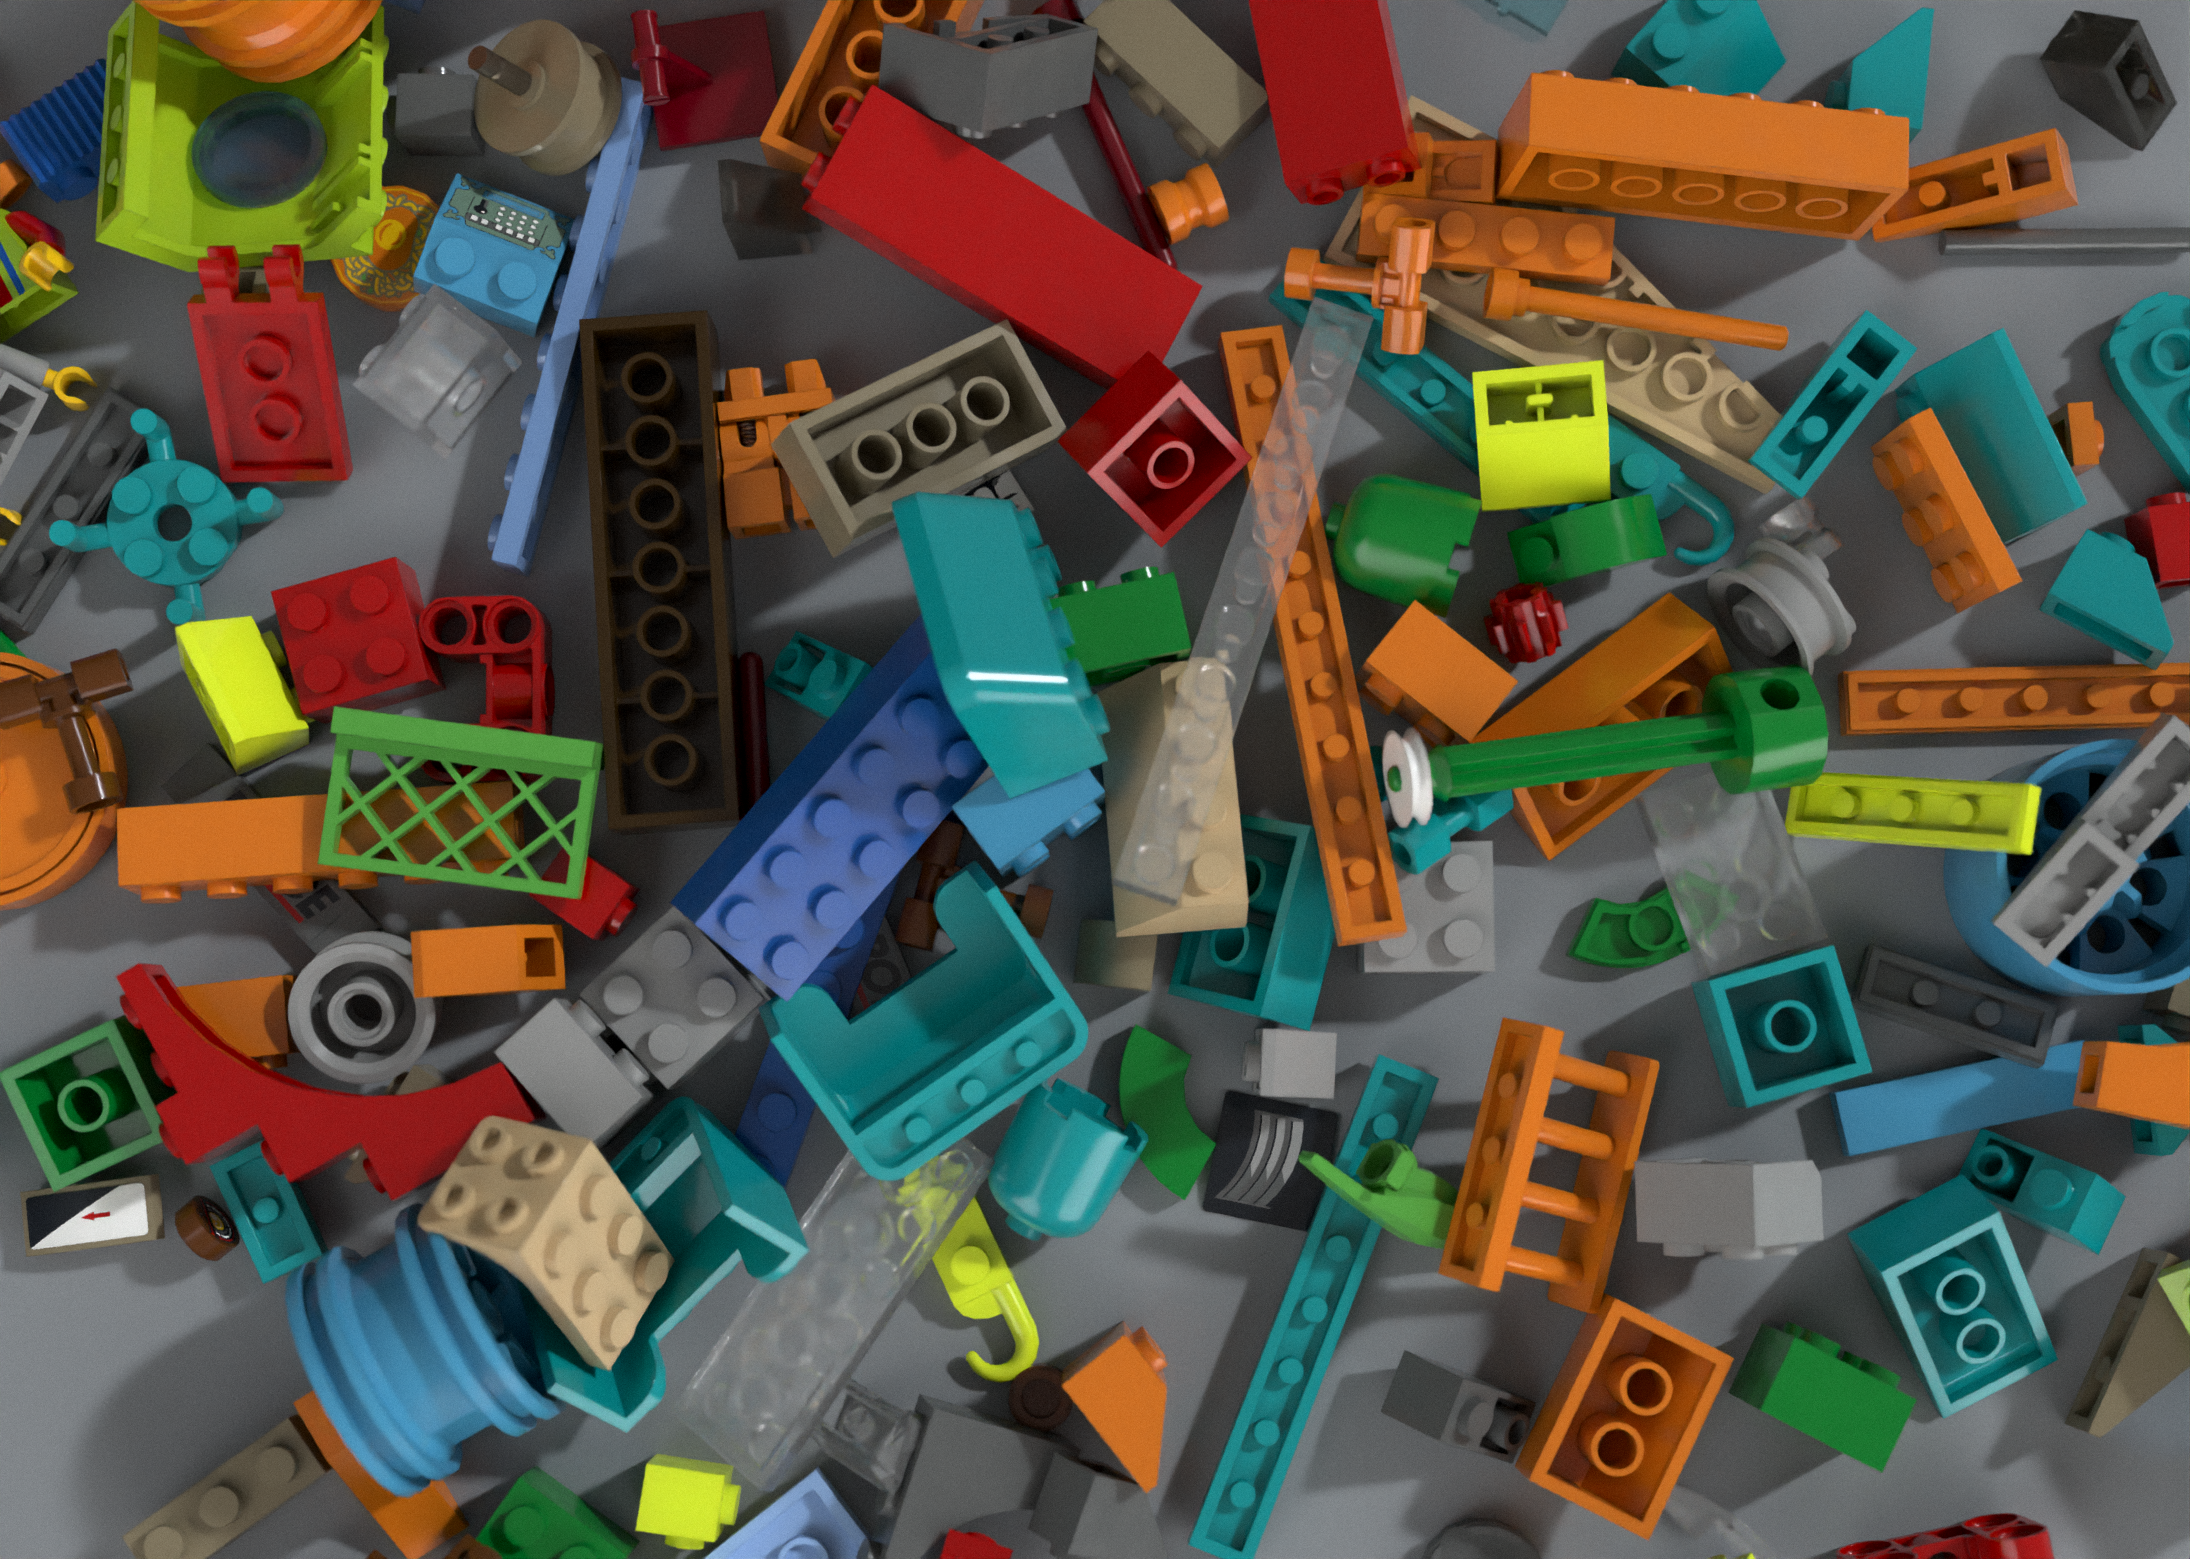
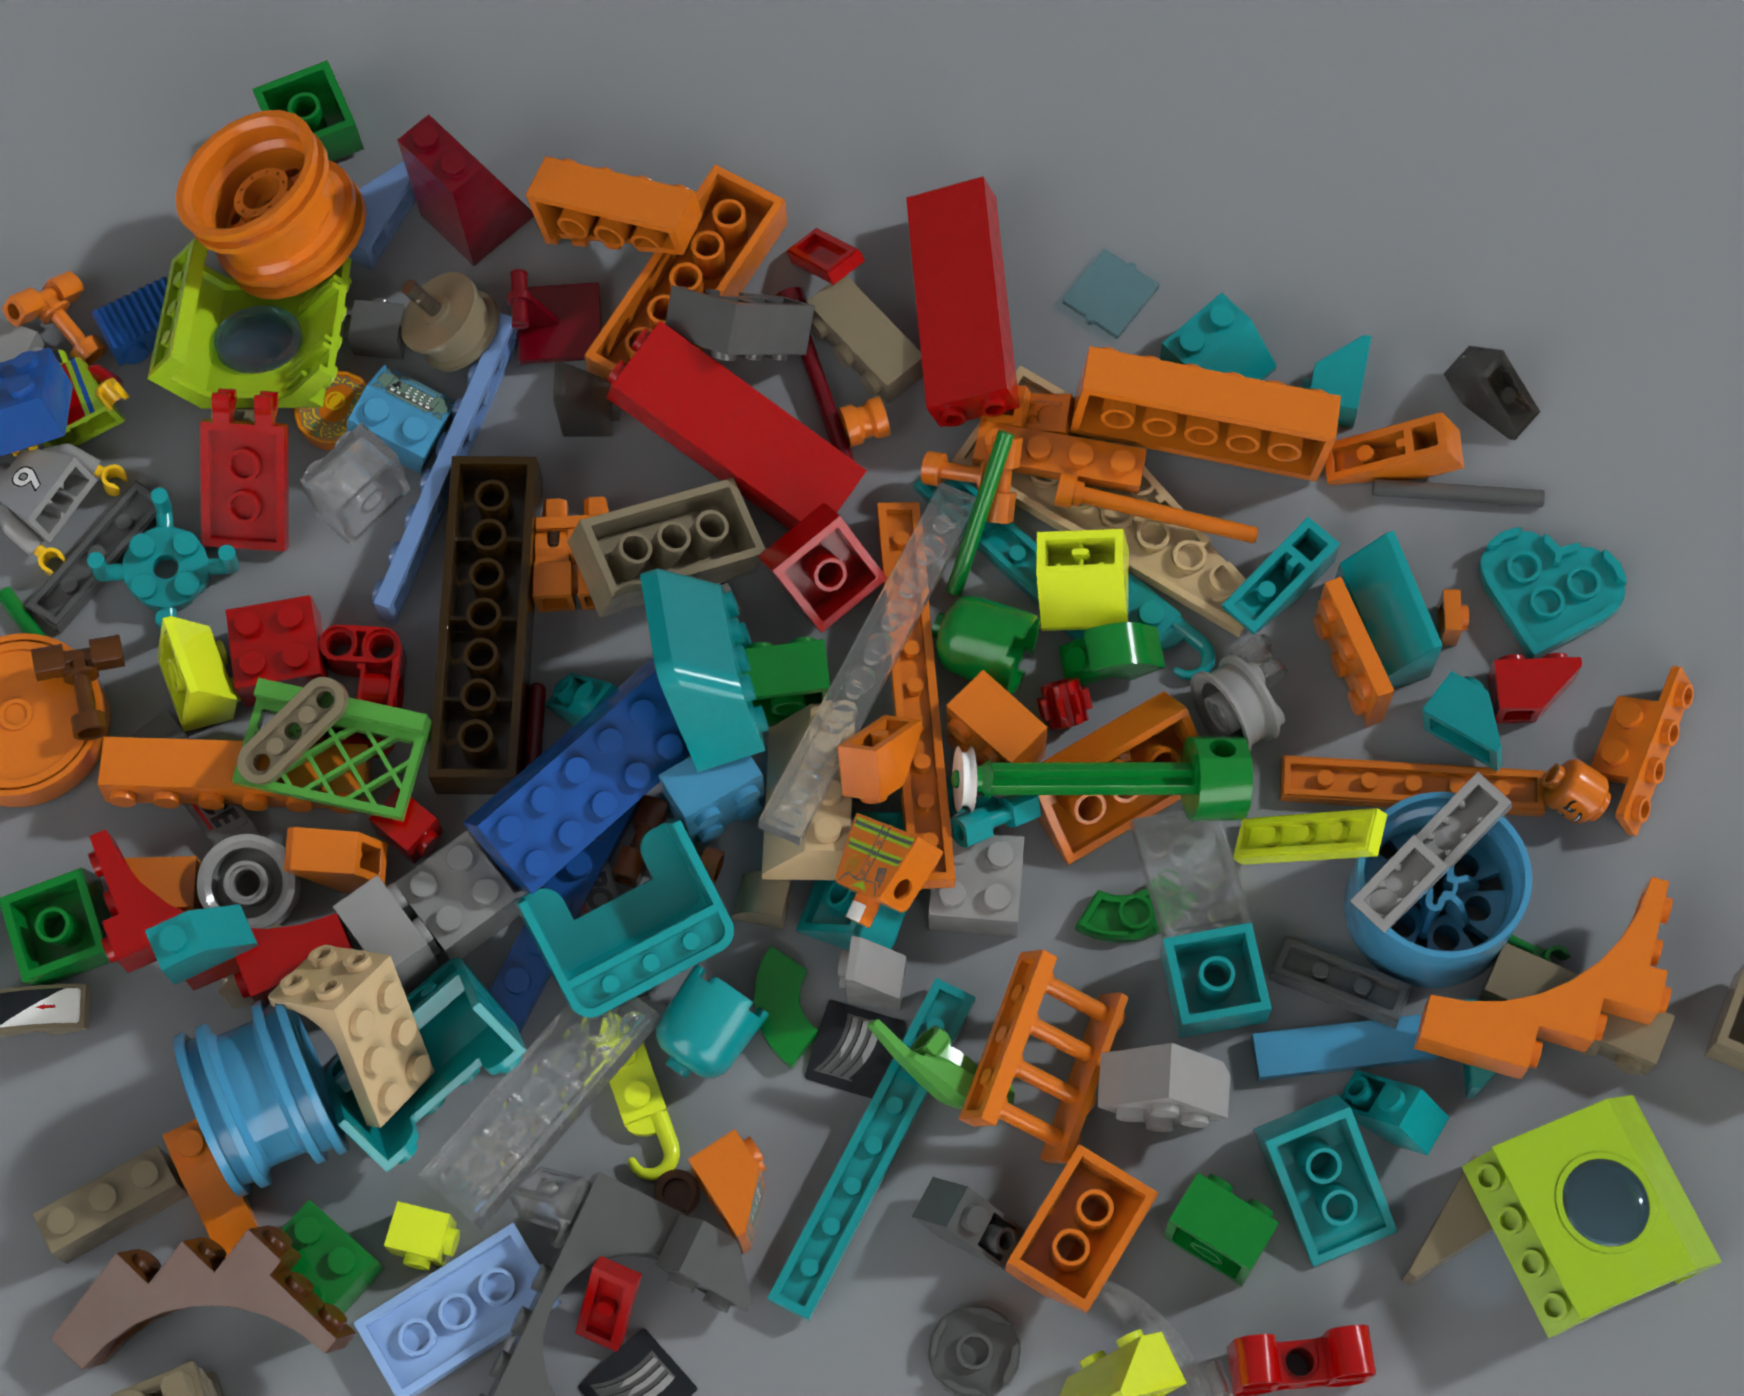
camera: 10 degrees right, 15 degrees down
(206, 1228) = (118, 1024): reddish brown tile -> none
(268, 1214) = (160, 1014): teal plate -> none
(304, 1132) = (200, 940): none -> teal slope
(374, 801) = (274, 737): none -> dark tan plate
(1276, 752) = (878, 758): none -> orange slope
(1301, 927) = (883, 868): none -> orange torso
(1380, 340) = (979, 512): none -> green bar

